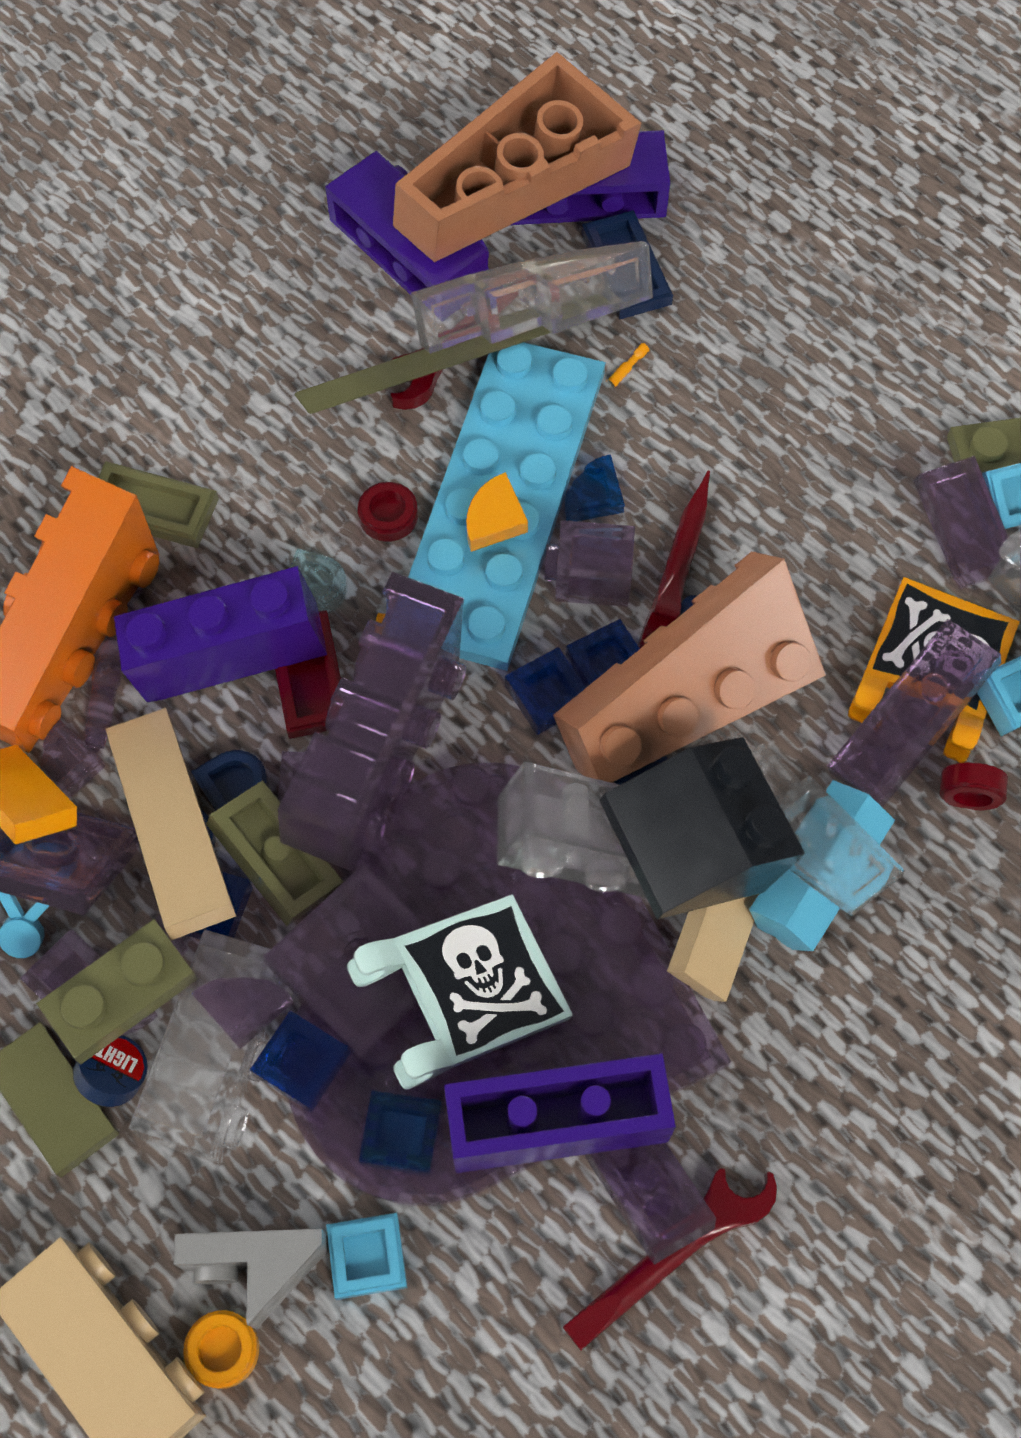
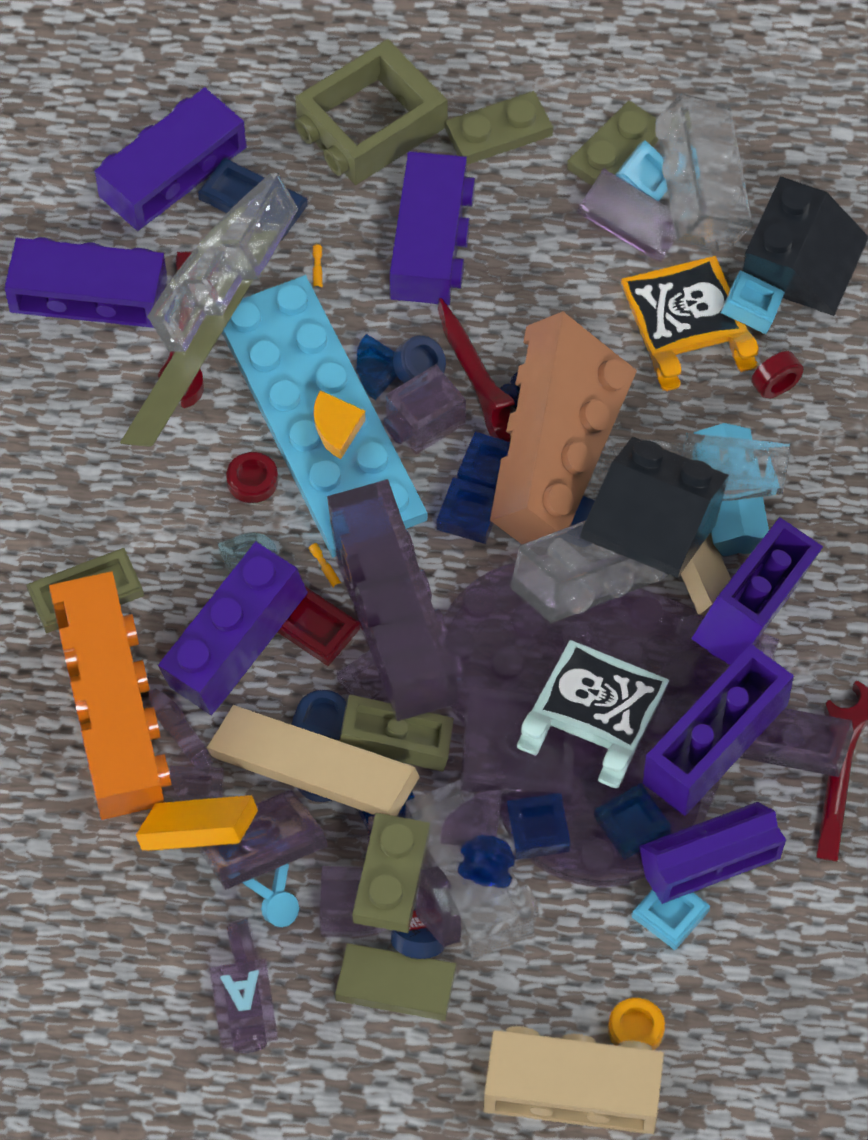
camera: 40 degrees left, 5 degrees down
(134, 1063) = (434, 907): none -> clear purple tile
(204, 1059) = (487, 861): none -> clear blue plate
(273, 1261) = (618, 952): light grey slope -> none
(456, 1231) = (712, 851): none -> dark purple piece
(515, 159) = (142, 166): nougat wedge -> none
(638, 508) = (417, 356): none -> dark blue tile
(735, 998) = (757, 591): none -> dark purple brick
(757, 398) = (431, 228): none -> dark purple brick
(801, 294) = (403, 80): none -> olive window
(913, 353) = (499, 127): none -> olive plate
(915, 712) = (706, 354): clear purple plate -> none

